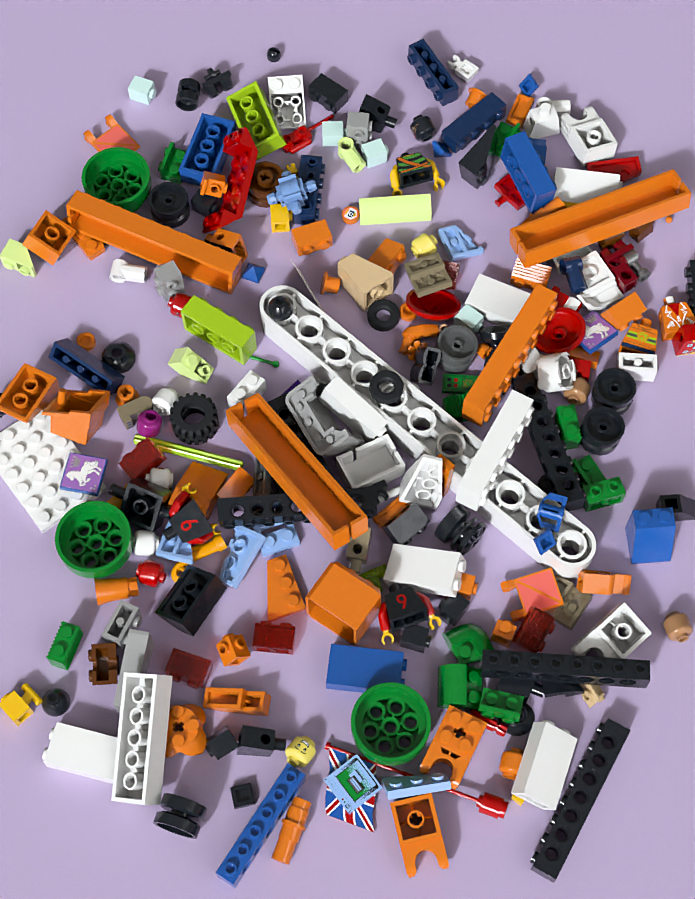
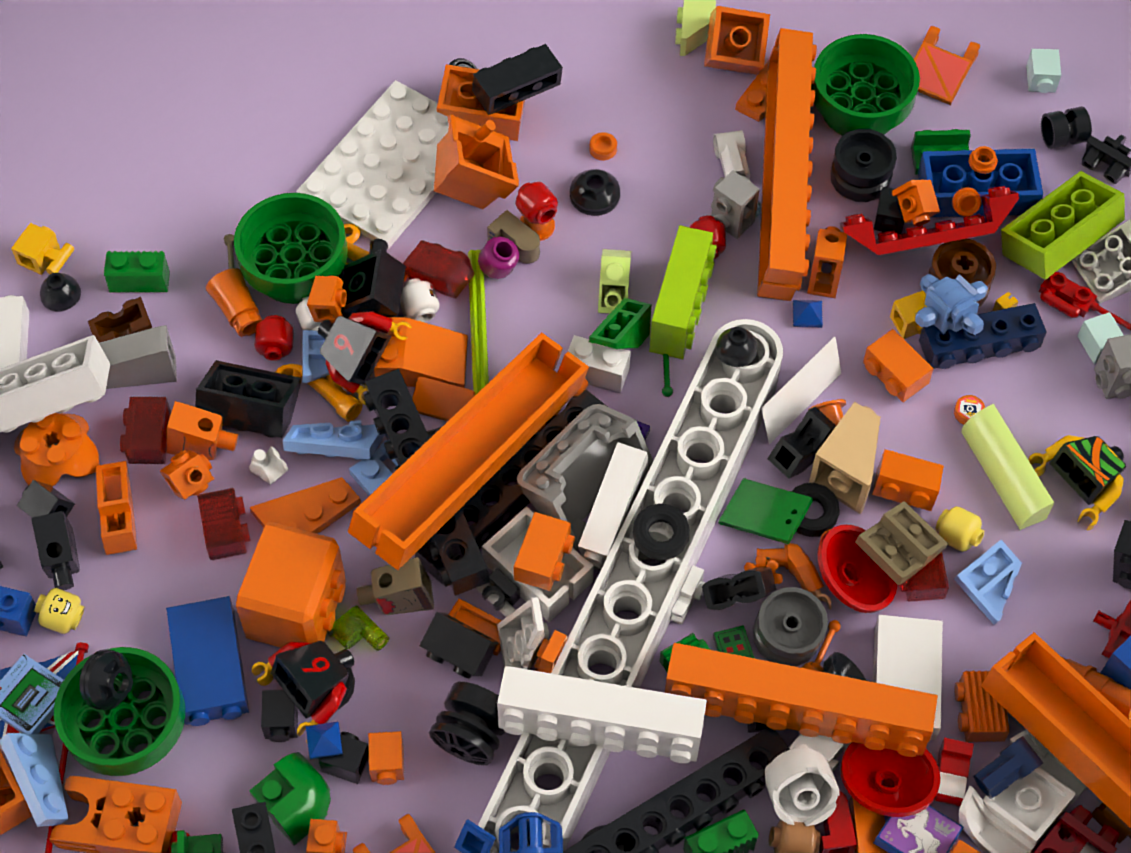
camera: 70 degrees right, 5 degrees down
(27, 367) = (517, 79): none -> black brick
(59, 584) = (229, 242): none -> dark tan hinge
(83, 474) = (392, 206): tile -> none
(86, 366) = (560, 148): dark blue brick -> none
(124, 386) = (536, 203): none -> red head
(124, 618) = (187, 324): light grey brick -> none
(148, 526) = (326, 298): none -> orange brick
(164, 400) = (543, 268): white head -> none
(190, 405) = (528, 291): black tyre -> none
(201, 136) = (984, 154): none -> orange plate
(206, 635) = (197, 431): none -> orange torso
(224, 159) = (966, 201): none -> orange plate
(233, 367) = (625, 326): none -> green slope
(242, 601) = (268, 465): none -> white arm
(342, 302) = (798, 449): none -> black brick
(350, 155) = (1074, 374): yellowish green piece -> none
(374, 153) = (1097, 407): light aqua brick -> none
(375, 453) = (543, 551): none -> orange brick
(375, 720) = (99, 676): none -> black piece
(380, 336) = (765, 511): none -> green container
(425, 569) = (386, 691): white brick -> none
(445, 612) = (324, 740): none -> blue slope
(459, 686) = (210, 798): green brick -> none
(469, 318) = (855, 634): light aqua brick -> none

